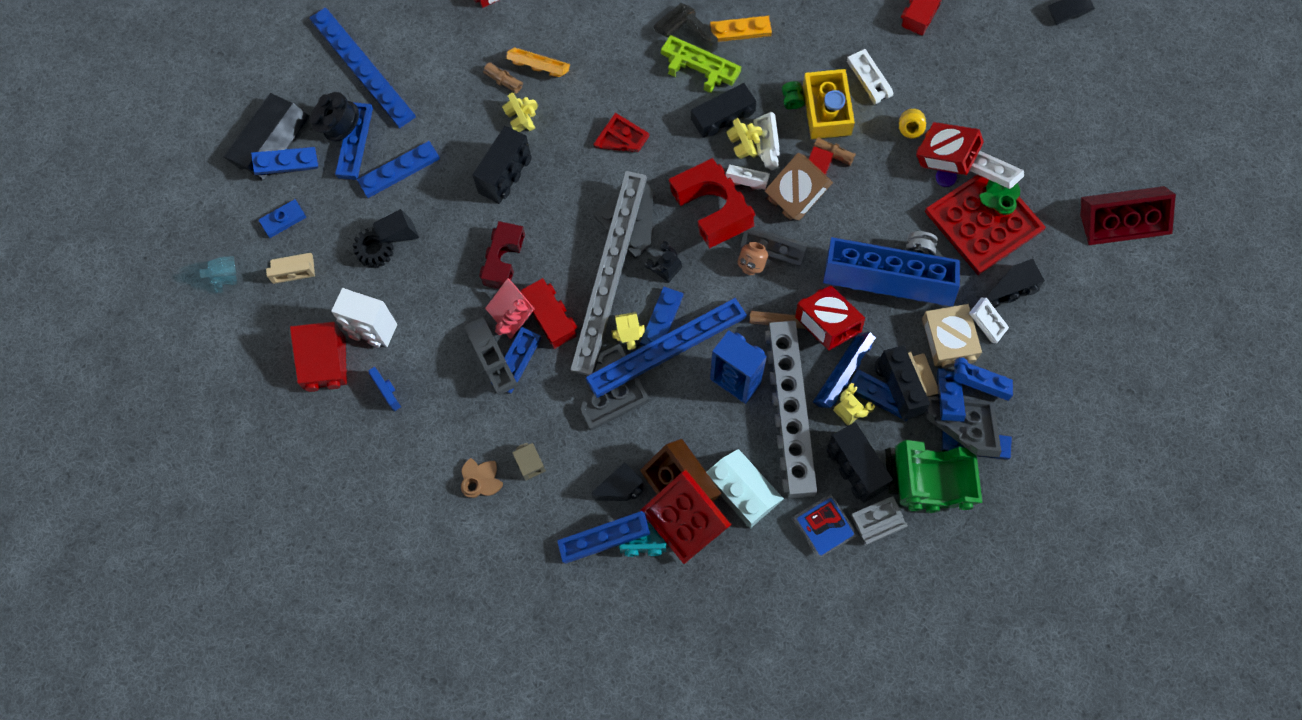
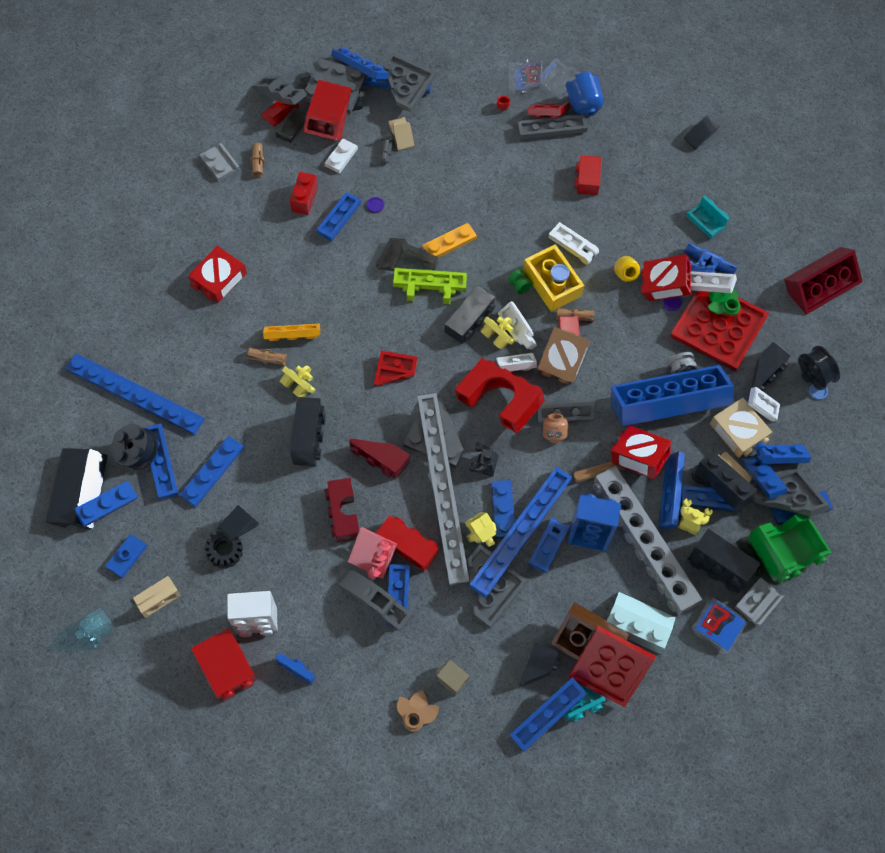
camera: 30 degrees left, 5 degrees down
(569, 219) = (383, 455): none -> dark red slope
(687, 373) = (548, 545): none -> blue plate
(1004, 143) = (704, 257): none -> blue pin
(1030, 102) = (708, 217): none -> teal bracket
(1060, 331) = (818, 394): none -> medium blue piece
(1069, 305) = (819, 367): none -> black wheel

